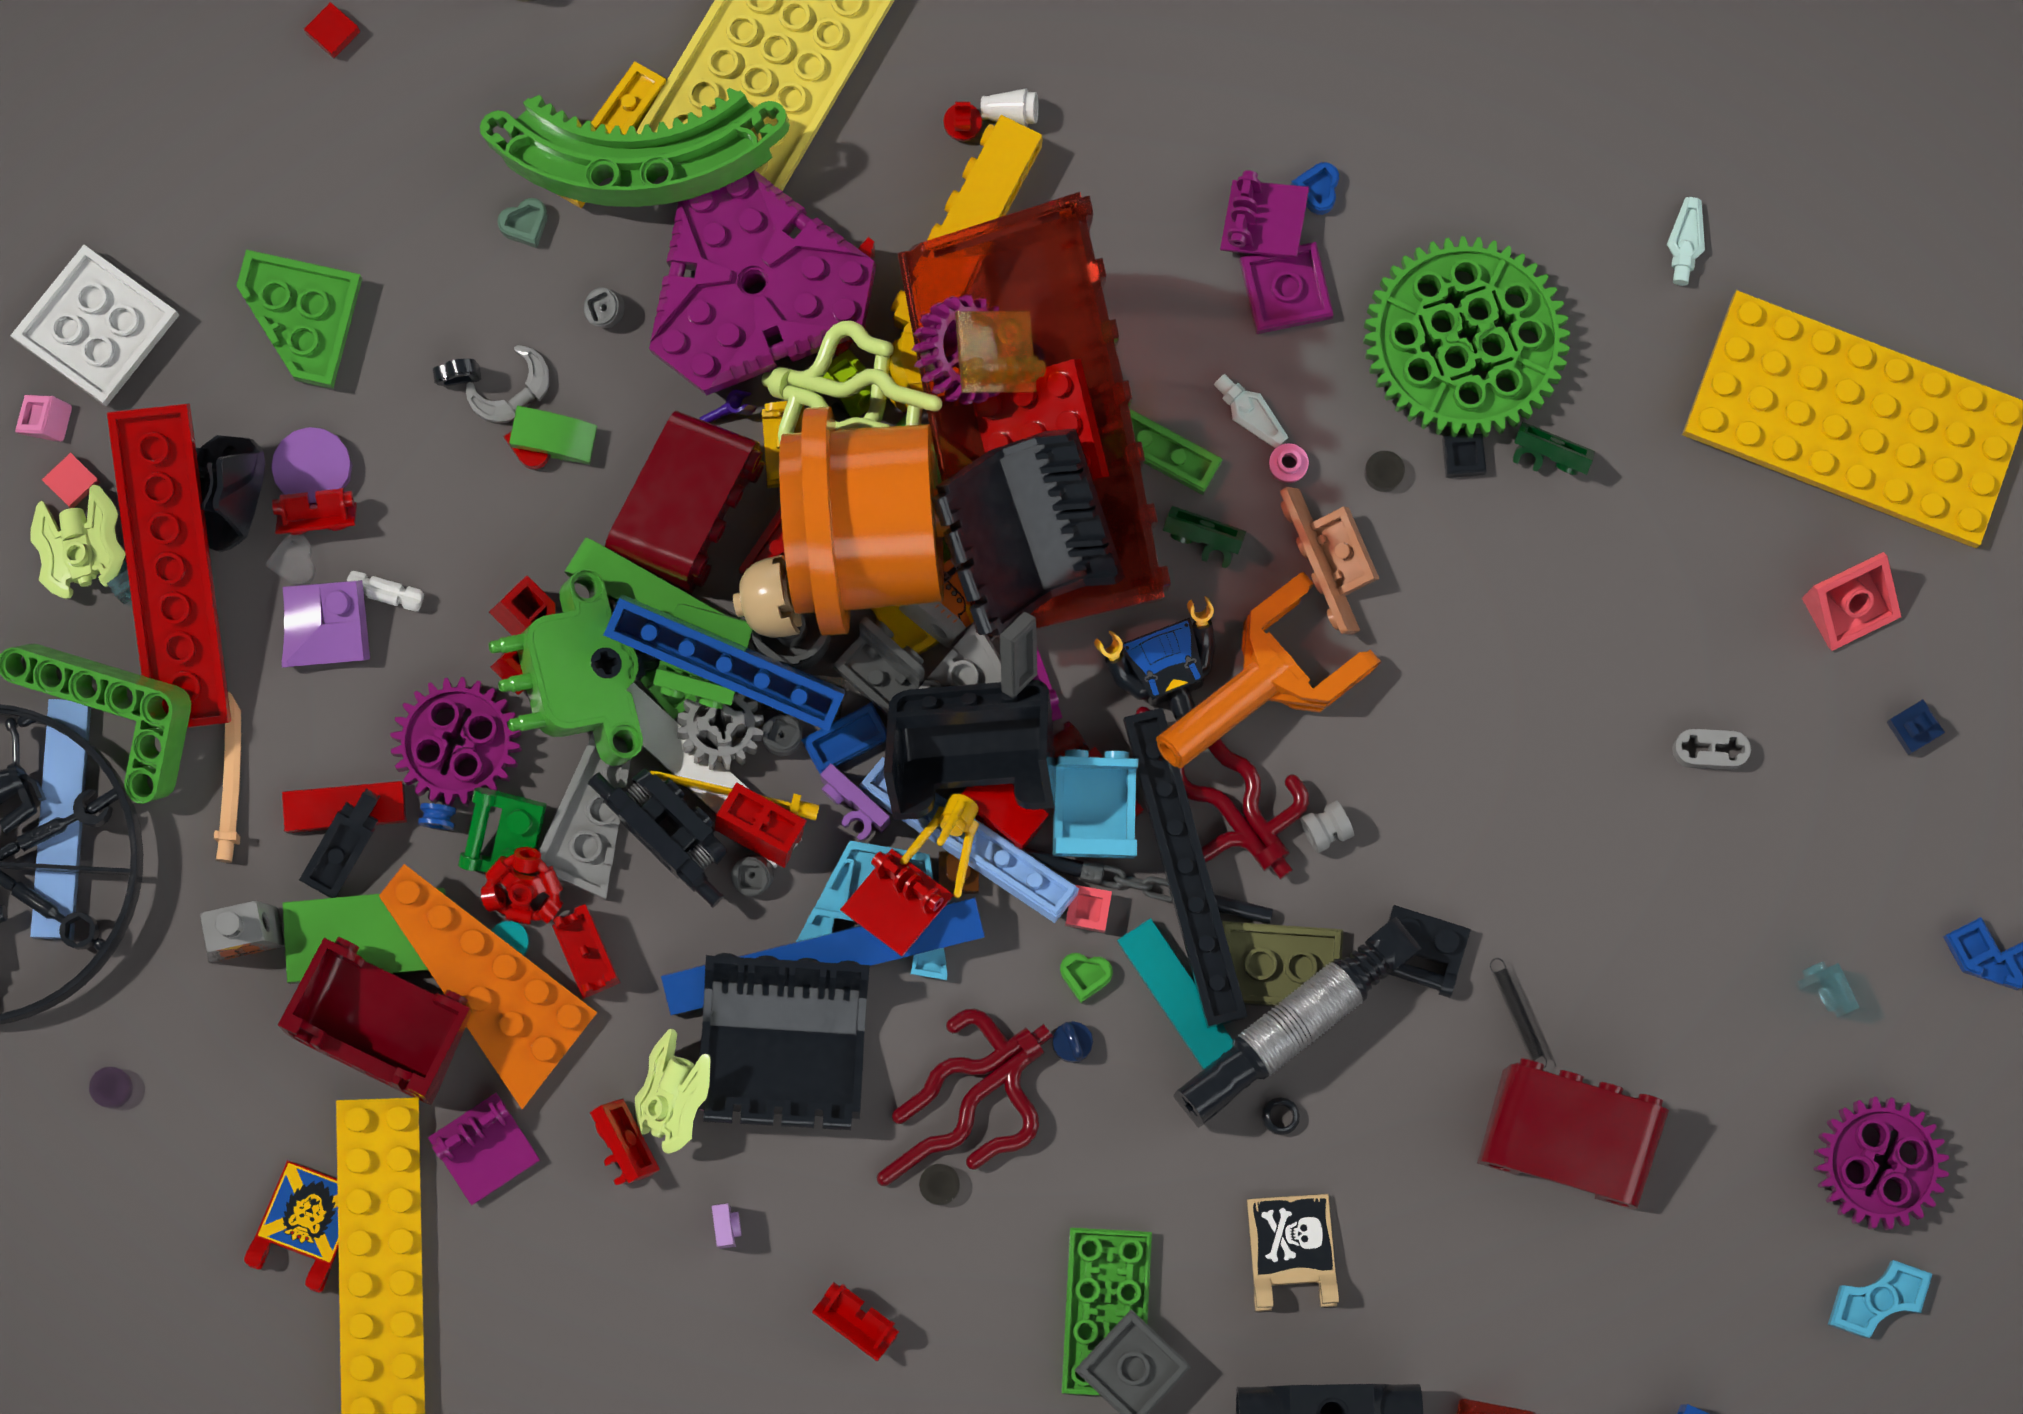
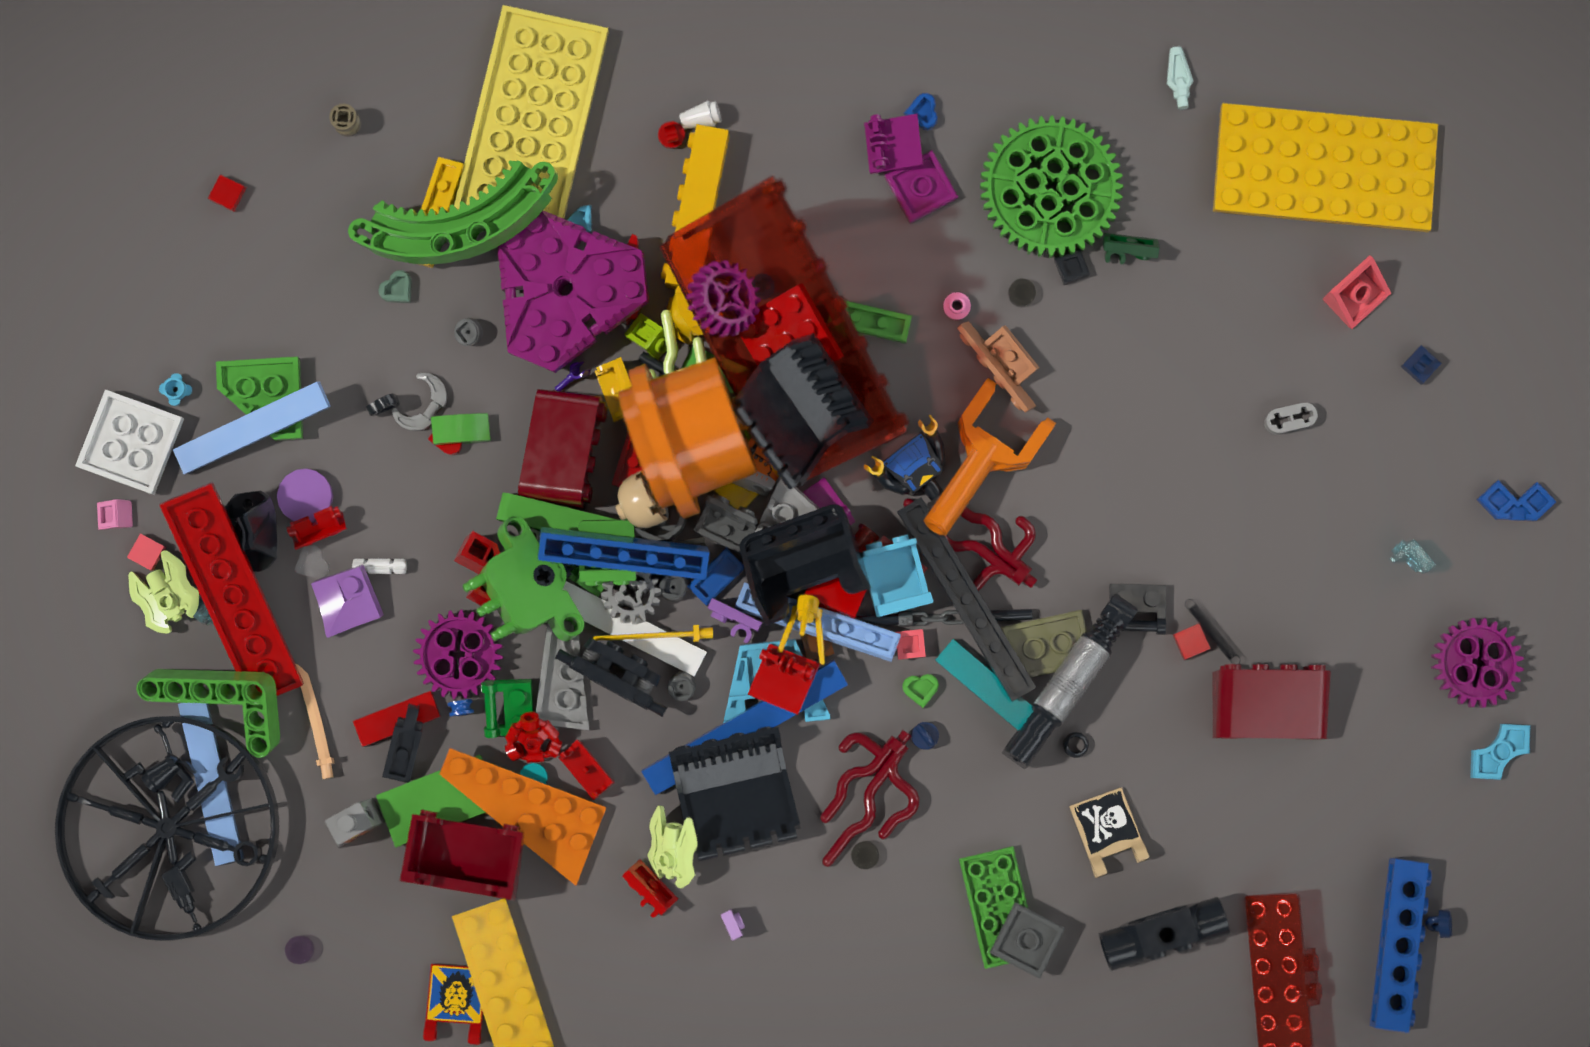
camera: 10 degrees left, 5 degrees up
(169, 267) = (167, 389): none -> medium azure plate
(267, 352) = (251, 428): none -> light blue tile
(483, 1149) = (558, 919): magenta hinge -> none
(759, 824) = (677, 652): red hinge -> none
(800, 386) = (617, 349): yellowish green plant -> none
(808, 197) = (582, 217): none -> medium azure tile
(843, 1313) = (828, 959): red hinge -> none
(996, 352) = (745, 295): clear yellow hinge -> none
(1018, 654) = (817, 492): dark grey tile -> none
(1191, 527) = (909, 368): dark green plate -> none
(1251, 412) = (922, 278): light aqua piece -> none
(1327, 826) = (1051, 545): light grey wheel -> none
(1484, 1018) = (1191, 641): none -> red tile

